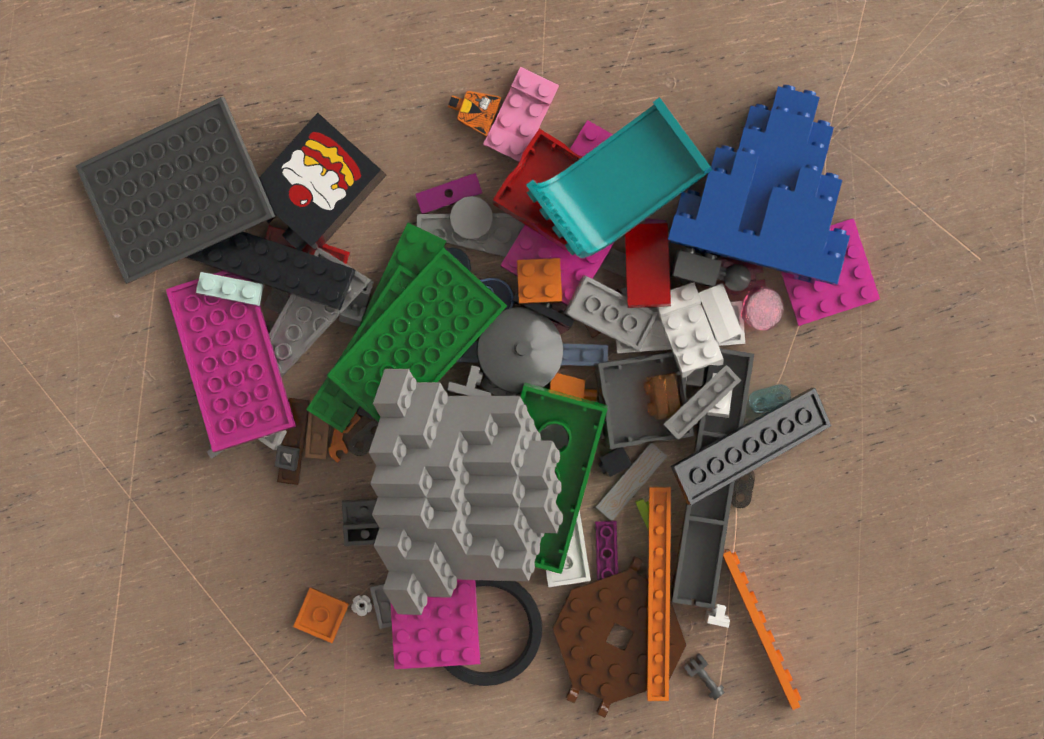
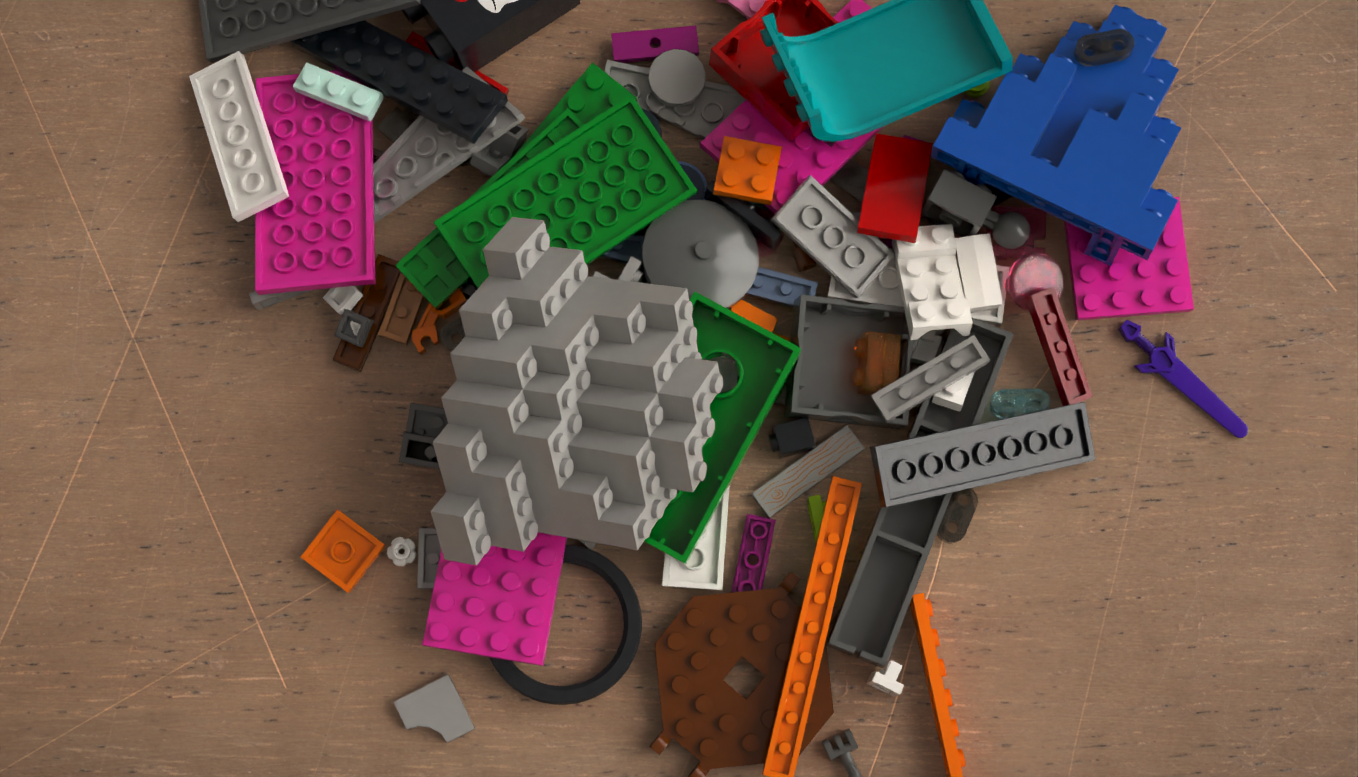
camera: 10 degrees right, 10 degrees down
(167, 338) = (238, 136): none -> white plate
(413, 705) = (436, 707): none -> light grey tile
(774, 131) = (1102, 46): none -> clear smoke plate
(788, 352) = (1058, 346): none -> dark red plate
(872, 345) = (1168, 365): none -> dark purple sword

